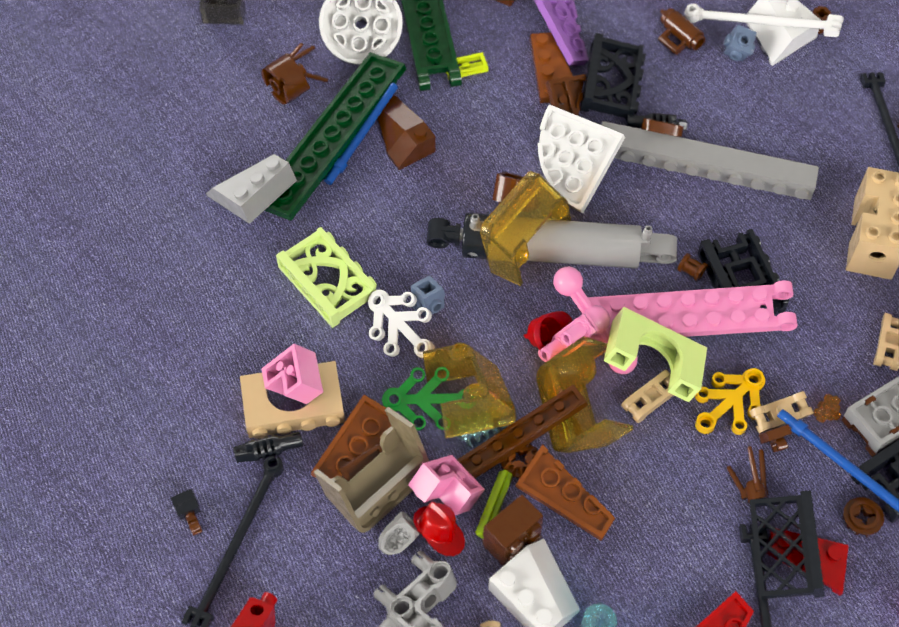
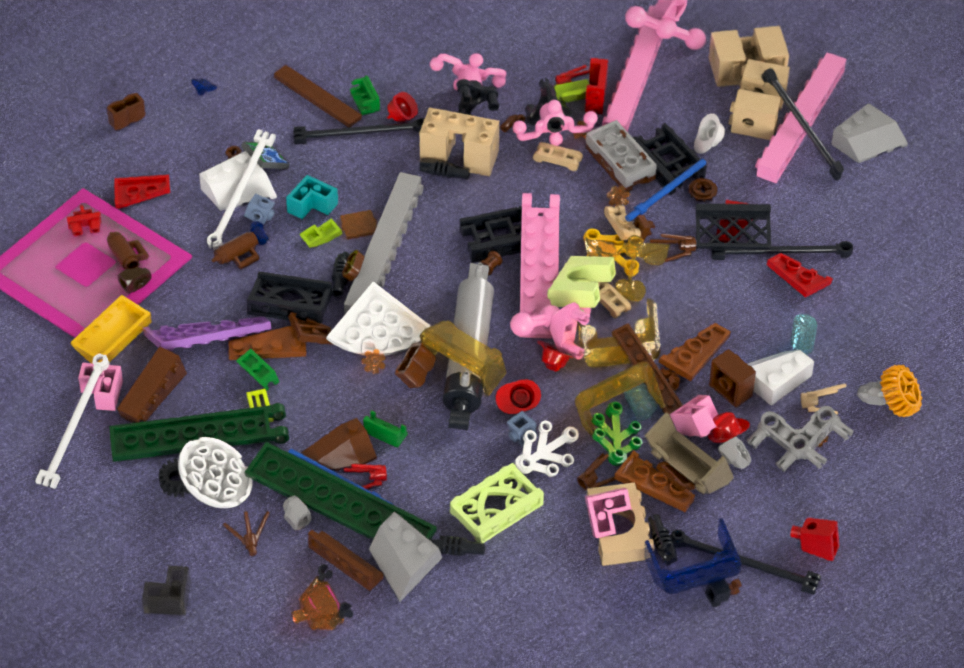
camera: 90 degrees left, 10 degrees down
(191, 452) = (722, 566): none -> clear blue windscreen
(198, 123) = (320, 605): none -> clear orange torso
(259, 142) = (344, 559): none -> reddish brown fence
(270, 240) = (458, 546): none -> black hinge
(285, 79) = (278, 532): reddish brown brick -> none
(317, 99) = (296, 513): none -> light grey rock
(363, 370) = (589, 477): none -> reddish brown plant
(371, 166) = (376, 472): none -> red plant
(433, 171) = (384, 431): none -> green hinge
(475, 291) = (518, 396): none -> red piece
(495, 500) = (690, 392): lime axle -> none
(509, 57) = (258, 368): none -> green hinge
(529, 157) = (369, 361): none -> clear orange plant
(715, 47) = (258, 229): none -> clear blue pin
(717, 105) = (317, 236): none -> lime slope
(730, 389) = (651, 253): none -> clear yellow plant
(742, 138) = (358, 224): none -> clear orange piece
(766, 84) = (311, 194): none -> teal brick
(825, 49) = (269, 157): none -> tile
(842, 219) = (442, 168): none -> black hinge

